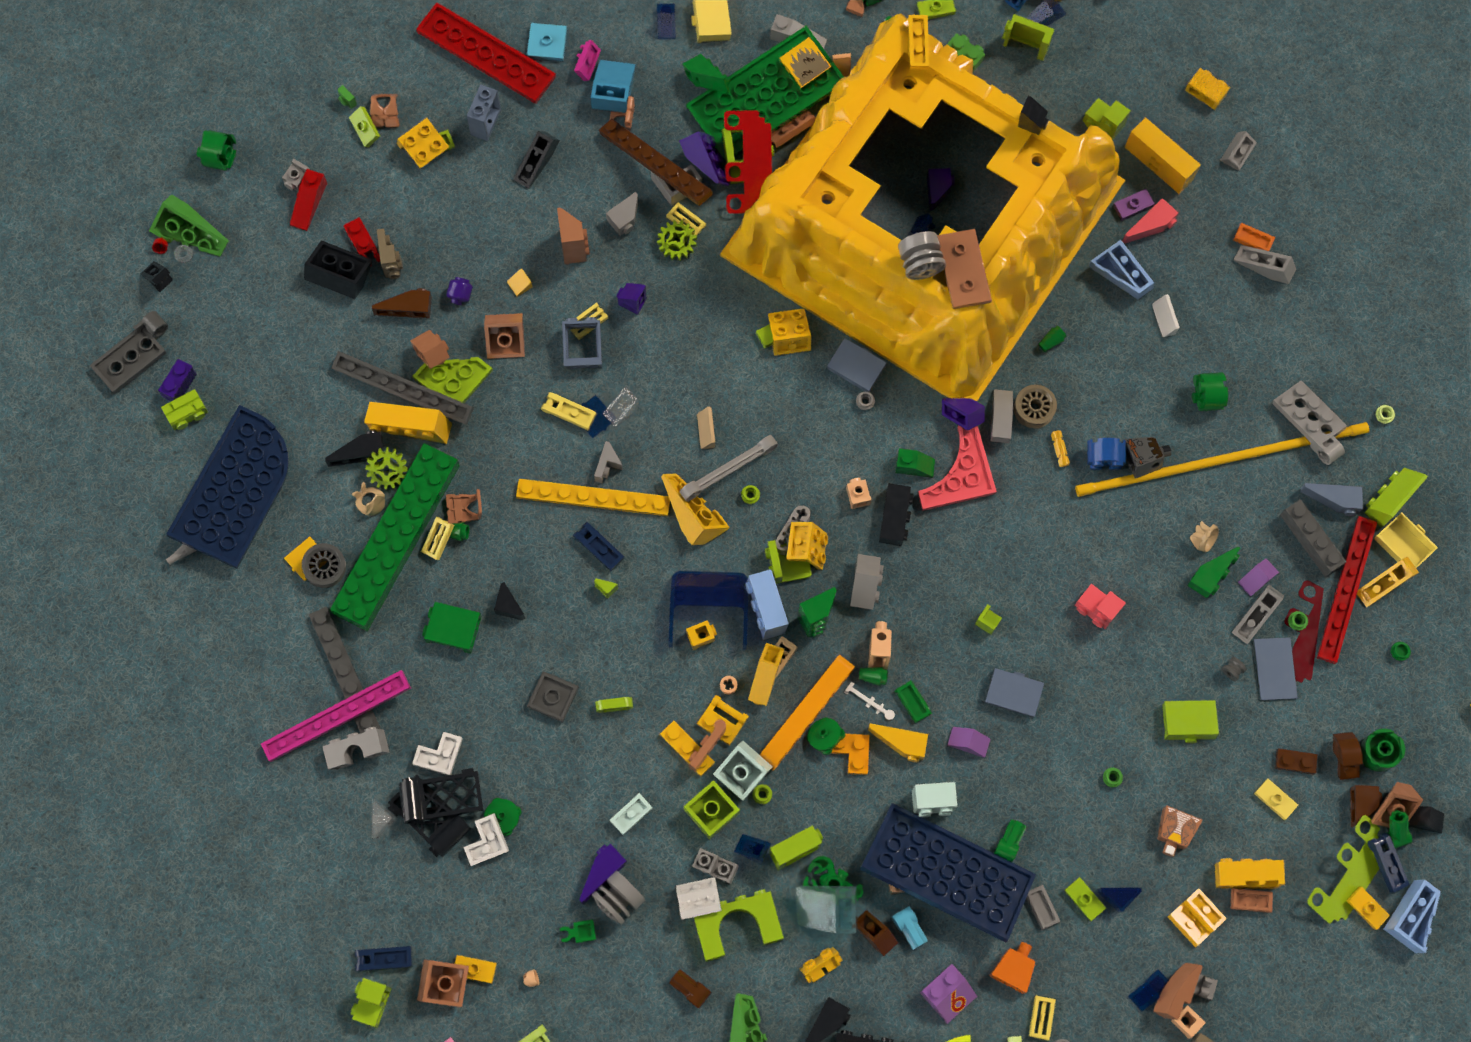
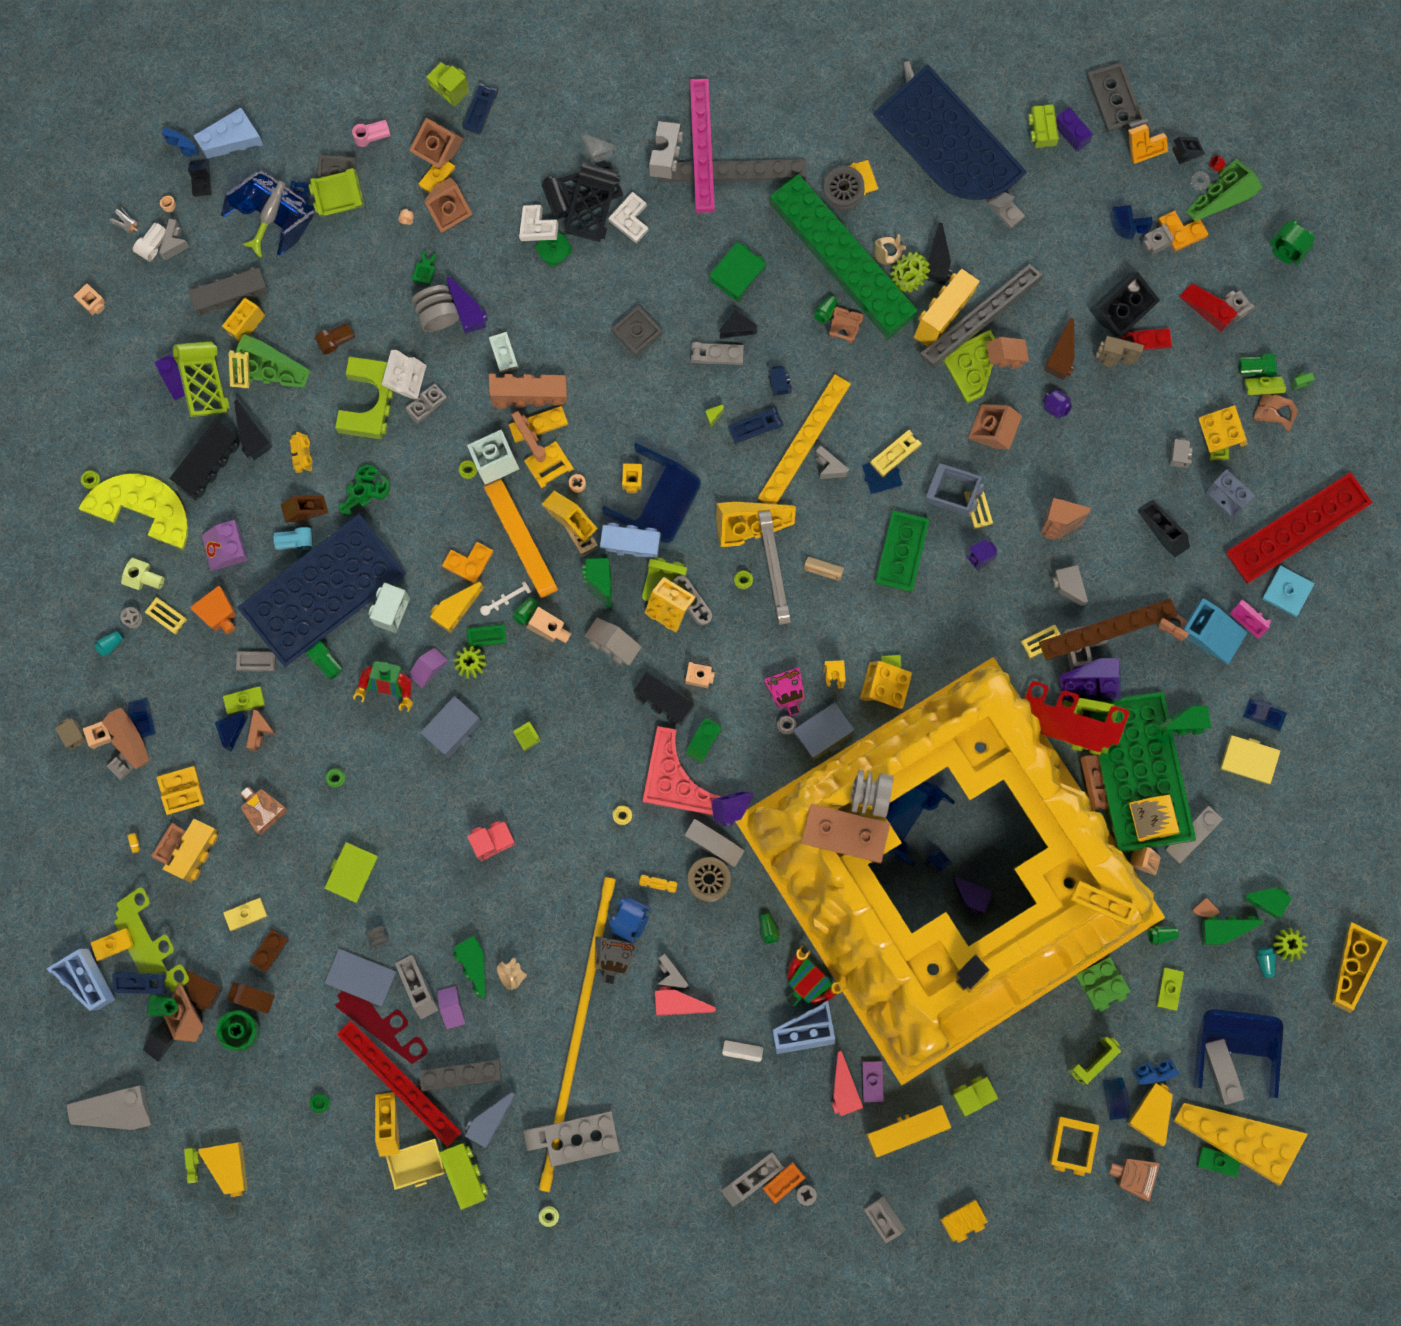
camera: 120 degrees right, 5 degrees up
(167, 311) = (1144, 147): none -> light orange plate
(246, 252) = (1183, 235): none -> light orange plate
(254, 262) = (1152, 245): none -> light grey brick
(255, 301) = (1125, 225): none -> clear blue brick
(283, 412) = (1005, 208): none -> light grey slope
(346, 136) = (1263, 365): none -> green piece
(445, 528) = (822, 291): light yellow tile -> none
(459, 171) = (1180, 453): none -> light grey brick
(501, 941) = (447, 205): none -> nougat slope
(519, 282) = (1043, 462): yellow slope -> none
(542, 612) = (717, 353): none -> light grey plate
(545, 542) = (779, 381): none -> dark blue brick
(614, 704) = (605, 377): lime beam -> none
(622, 407) = (876, 498): clear slope -> none
(659, 367) = (902, 551): none -> green plate
(659, 770) = (527, 390): none -> nougat wedge
(682, 235) = (1016, 623): lime gear -> none
(711, 809) = (472, 417): lime brick -> none
(753, 848) = (423, 439): clear blue slope -> none
(796, 847) = (405, 471): lime window -> none
(799, 372) = (835, 670): none -> yellow hinge
(825, 735) = (492, 543): green piece -> none
(827, 908) = (340, 476): clear light blue slope -> none
(835, 412) = (786, 690): none -> torso
(949, 697) = (474, 667): none -> lime gear
(1002, 770) = (385, 679): none -> torso
(1018, 500) = (618, 810): none -> light yellow plate
(1080, 284) = (809, 982): none -> torso
(1087, 42) = (1079, 1125): none -> yellow window
(1102, 869) = (258, 726): none -> nougat slope
(1135, 399) = (675, 978): none -> light grey slope
(1155, 387) = (675, 1003): none -> coral slope
(1210, 391) = (645, 1050): green brick -> none
(1251, 220) = (806, 1195): none -> light grey wheel
(1268, 935) = (134, 843): none -> yellow tile
(1303, 620) = (386, 1020): bright green plate -> none

